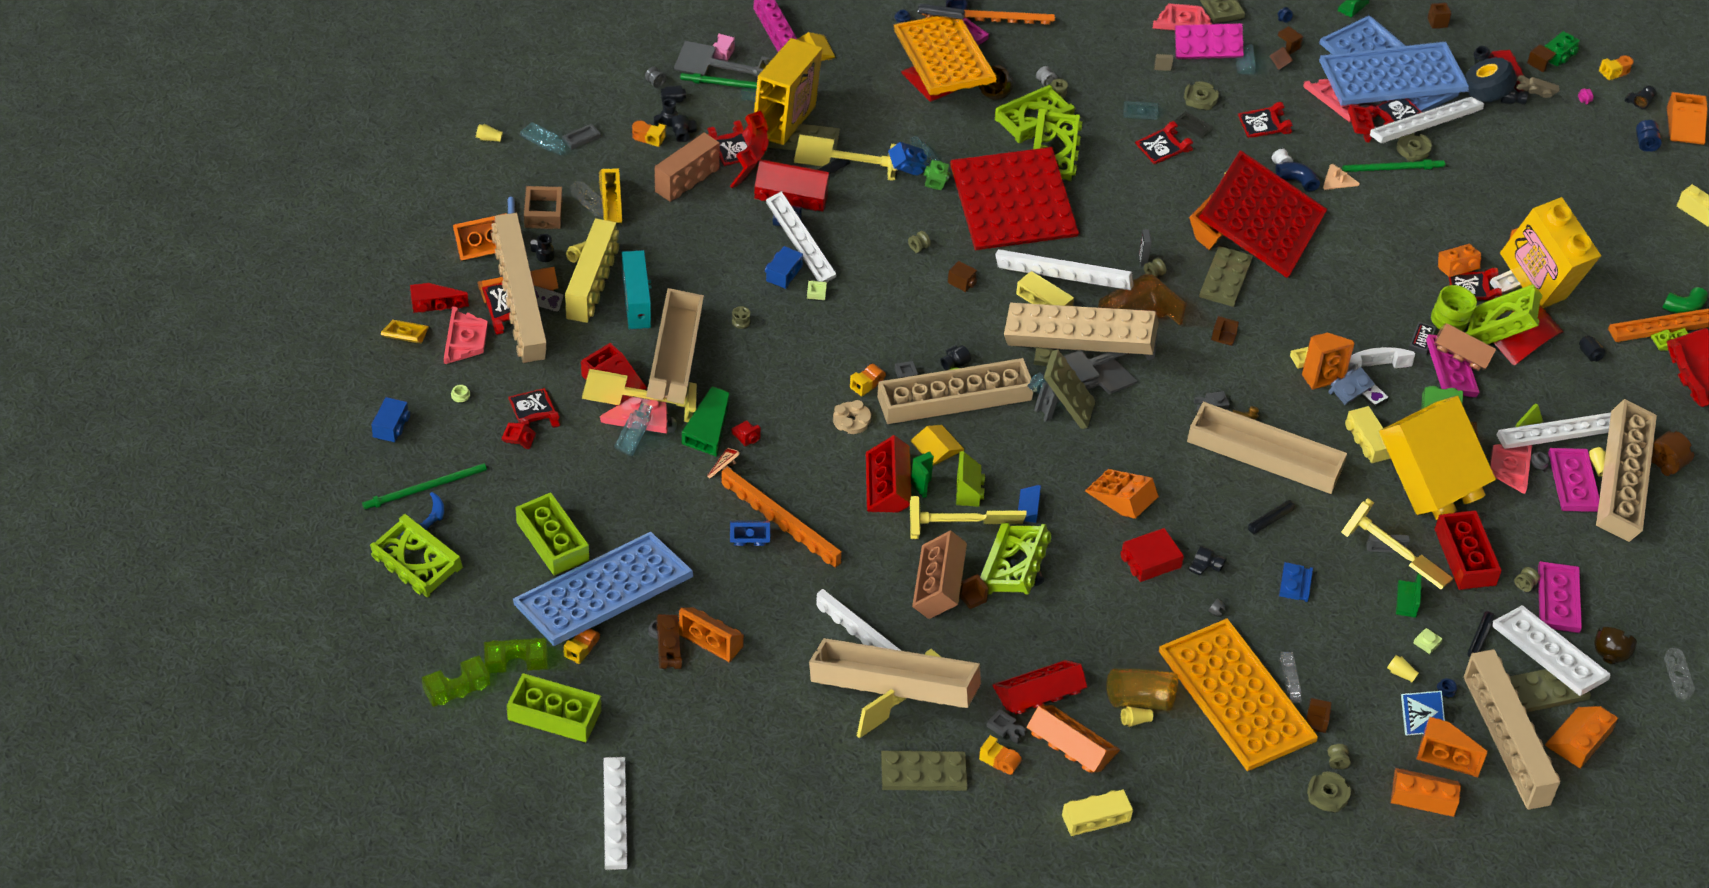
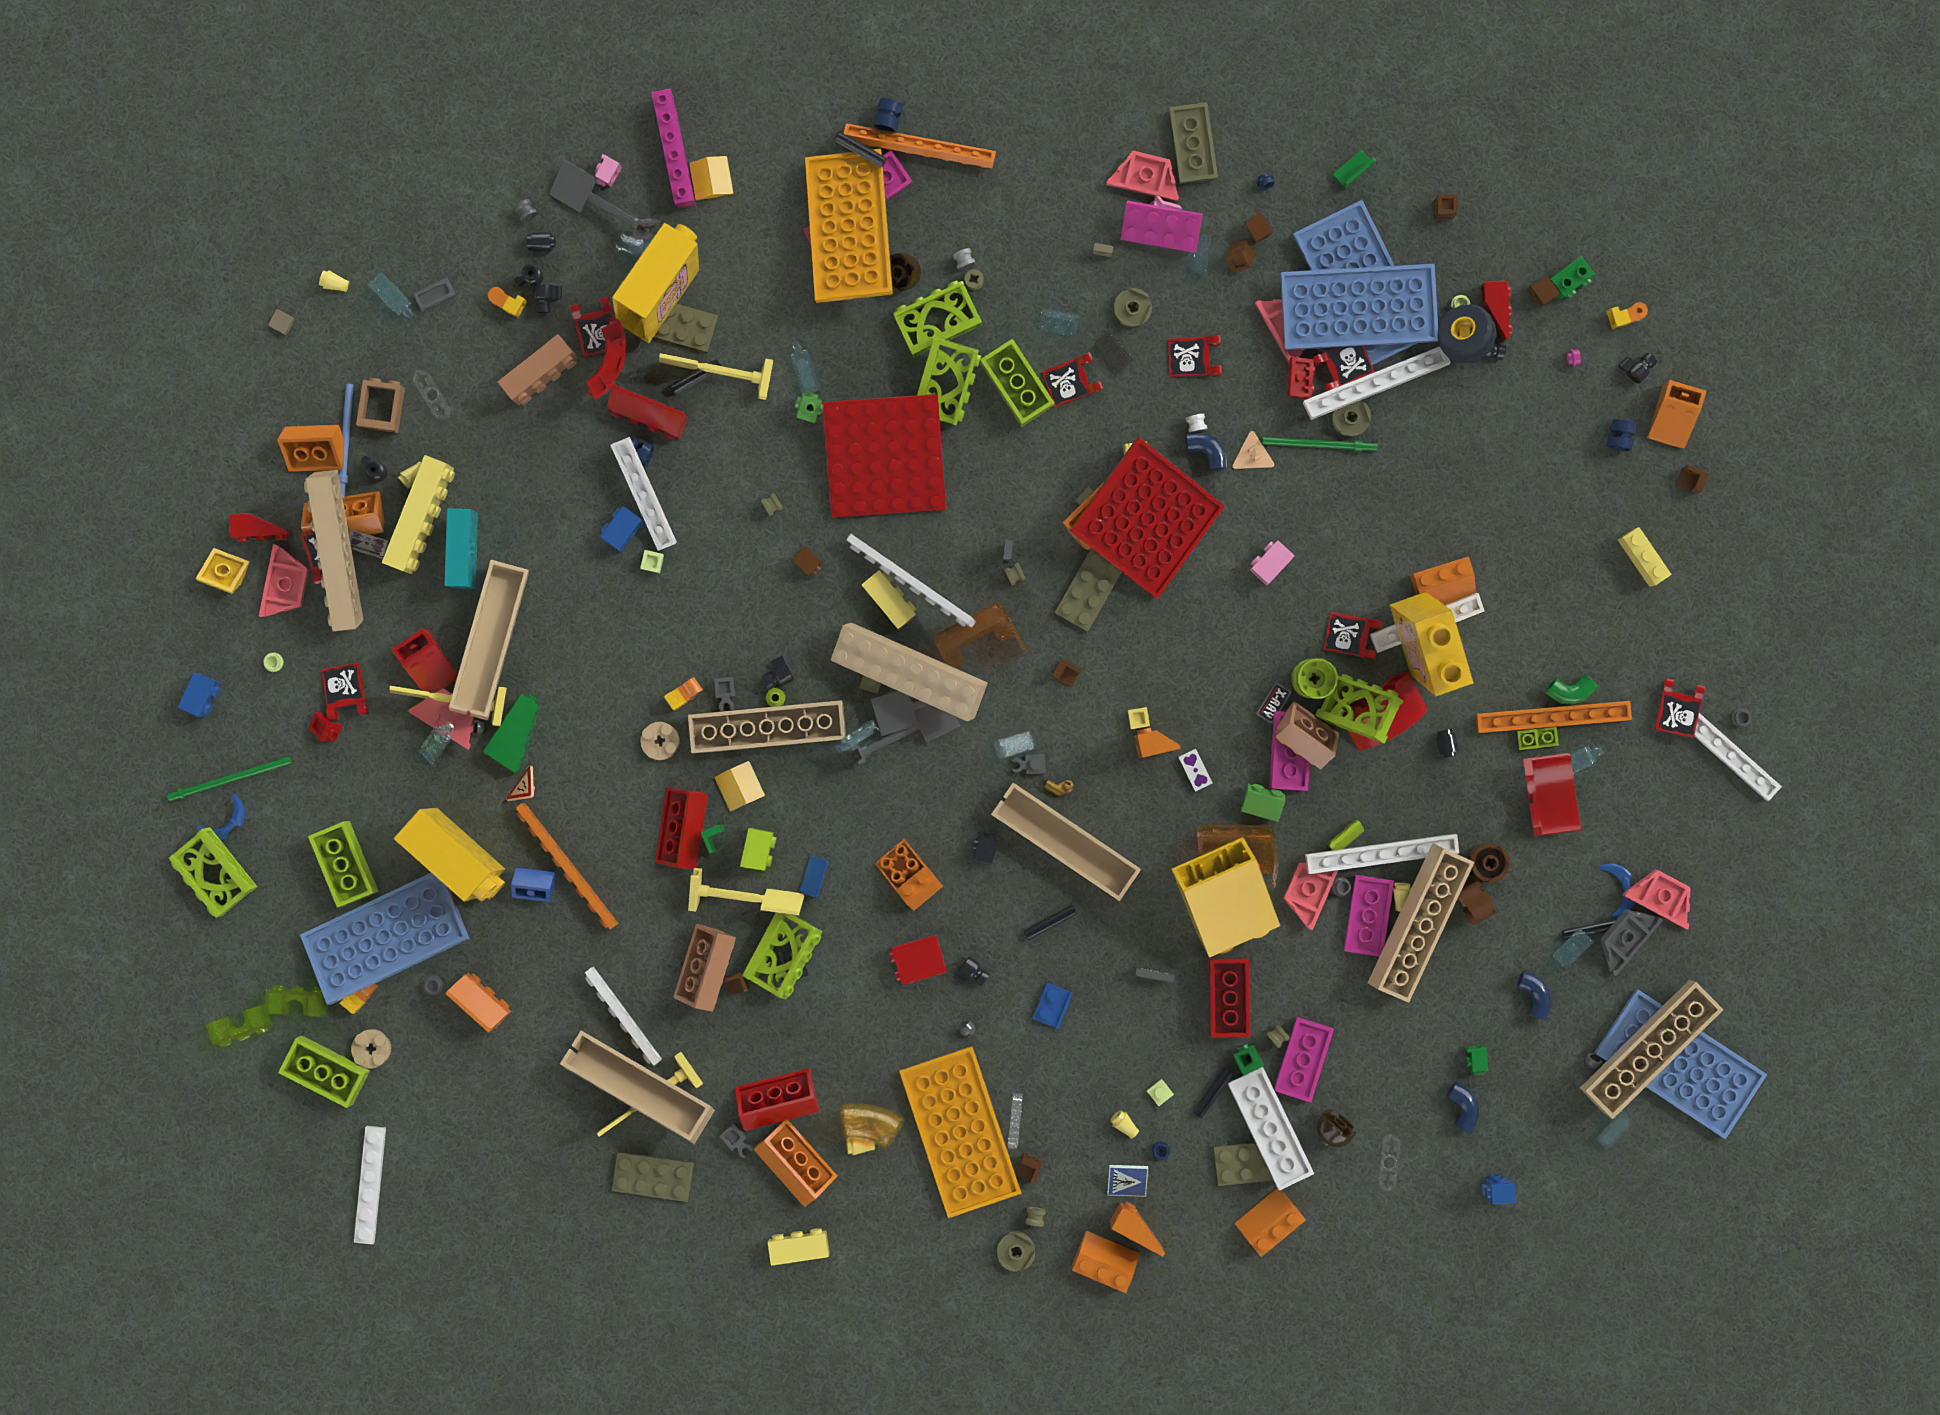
camera: 15 degrees right, 40 degrees up
(442, 164) = (281, 322): none -> dark tan tile
(607, 682) = (363, 1040): none -> tan plate
(610, 193) = (450, 398): yellow arch -> none
(667, 498) = (451, 855): none -> yellow brick
(668, 641) = (439, 1005): reddish brown plate -> none
(698, 78) = (574, 216): green bar -> none
(741, 317) = (563, 591): olive wheel -> none
(746, 433) = (551, 749): red bracket -> none
(902, 16) = (816, 135): dark blue plate -> none
(908, 158) = (779, 386): blue brick -> none
(999, 756) = (724, 1174): leg -> none
(1069, 389) = (877, 755): olive plate -> none
(1117, 144) = (1017, 382): none -> lime brick
(1190, 464) = (985, 848): none -> black brick
(1194, 389) = (1013, 745): none -> clear light blue slope
(1352, 386) = (1176, 767): sand blue bracket -> none
(1366, 433) = (1176, 833): light yellow brick -> none
(1383, 239) = (1272, 562): none -> bright pink brick
(1385, 355) = (1238, 733): white slope -> none
(1408, 597) = (1156, 1040): green panel -> none
(1420, 564) = (1183, 1015): light yellow piece -> none
(1459, 260) = (1345, 603): orange brick -> none
(1481, 53) = (1472, 283): black brick -> none
(1505, 599) = (1248, 1066): none -> green brick
(1511, 729) = (1202, 1217): tan brick -> none
(1537, 86) = (1515, 346): dark tan plate -> none
(1670, 419) = (1498, 866): none -> reddish brown brick

